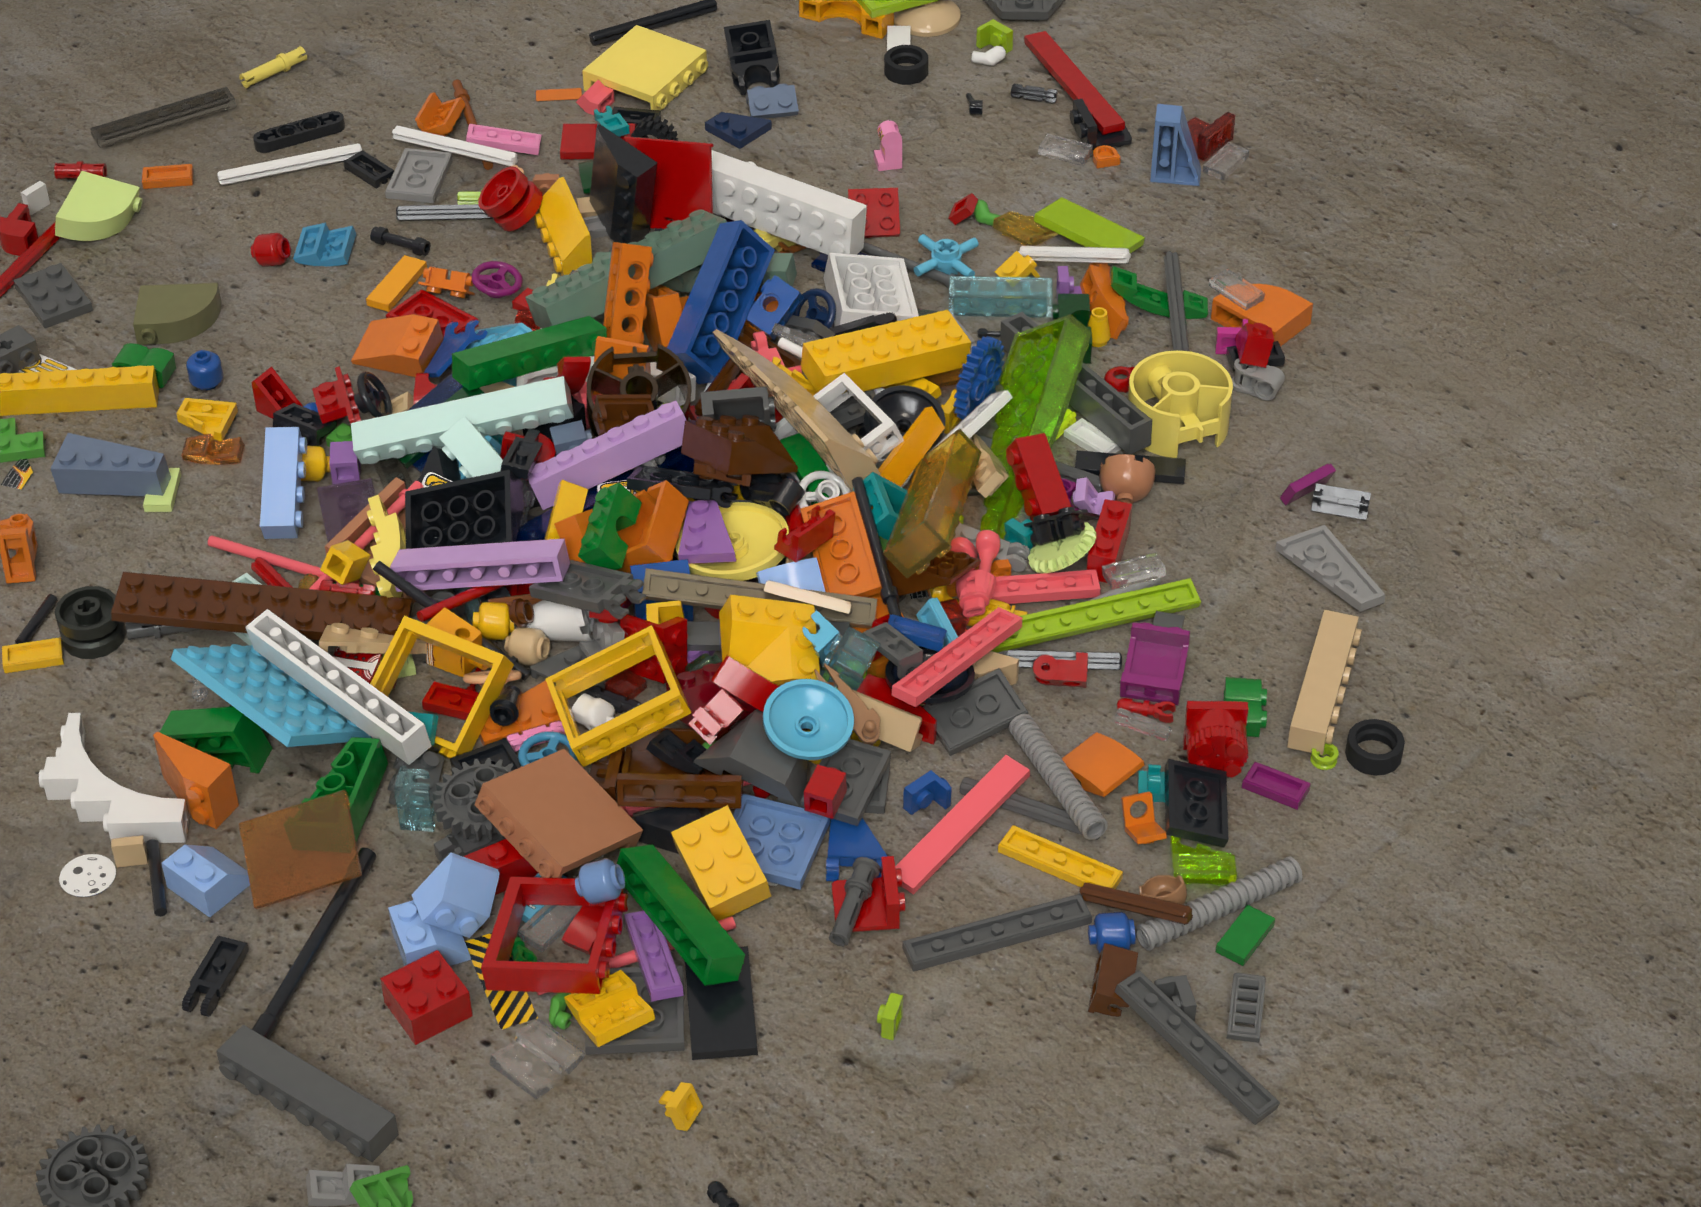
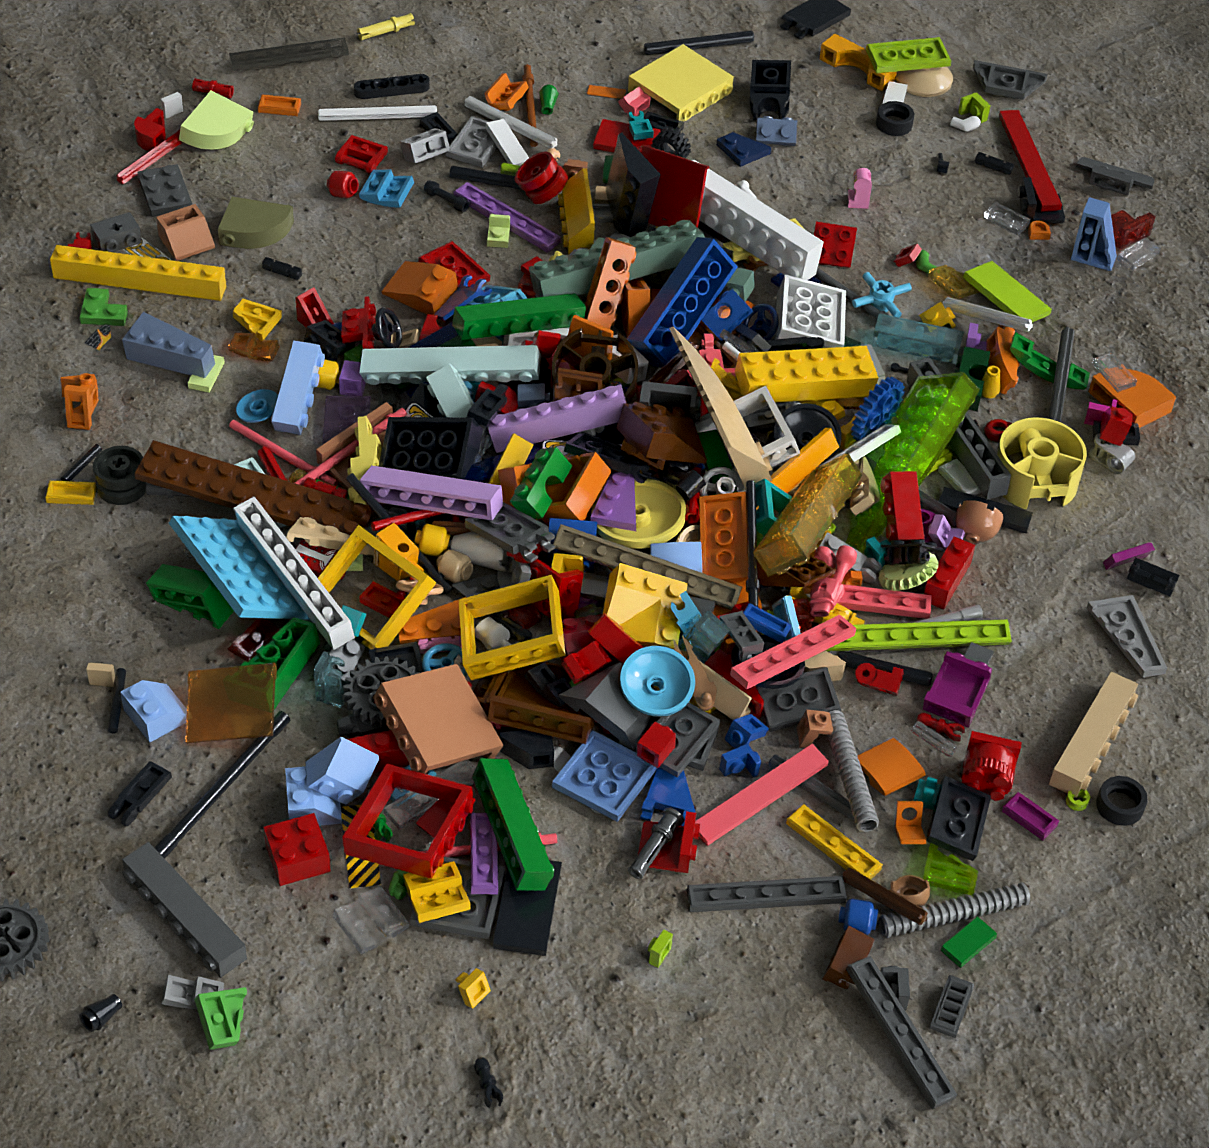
camera: 10 degrees right, 5 degrees up
(87, 875) = (65, 686): white sticker -> none
(91, 336) = (185, 232): none -> nougat slope
(101, 799) = (88, 625): white arch -> none
(138, 355) = (216, 256): green brick -> none
(199, 779) = (168, 627): orange slope -> none
(204, 370) = (264, 278): blue head -> none
(228, 356) = (282, 268): none -> black axle
(237, 514) = (257, 406): none -> dark azure dish
(283, 207) = (361, 149): none -> red plate
(305, 774) = (255, 636): none -> clear red slope
(345, 562) = (327, 467): yellow brick -> none
(359, 189) = (425, 145): none -> light grey brick
(396, 283) = (434, 232): light orange tile -> none
(437, 281) = (482, 242): orange hinge -> none
(456, 168) = (506, 142): none -> white tile
(471, 259) = (498, 231): none -> yellowish green bracket
(479, 250) = (519, 223): none -> medium lavender tile
(491, 110) = (548, 98): none -> green cone
(495, 284) = (512, 247): magenta piece -> none
(504, 139) = (551, 123): bright pink tile -> none
(506, 707) = (422, 617): black cone -> none
(521, 612) = (454, 539): reddish brown plate -> none
(600, 881) = (453, 786): medium blue head -> none
(721, 864) = (556, 788): yellow brick -> none
(807, 536) = (697, 522): red hinge -> none
(808, 596) = (685, 575): tan tile -> none
(922, 758) = (745, 730): none -> blue bracket
(998, 735) = (811, 725): none -> nougat bracket
(1133, 571) = (961, 604): clear plate -> none
(1174, 85) = (1113, 177): none -> dark grey plate
(1252, 692) = (1029, 733): green brick -> none

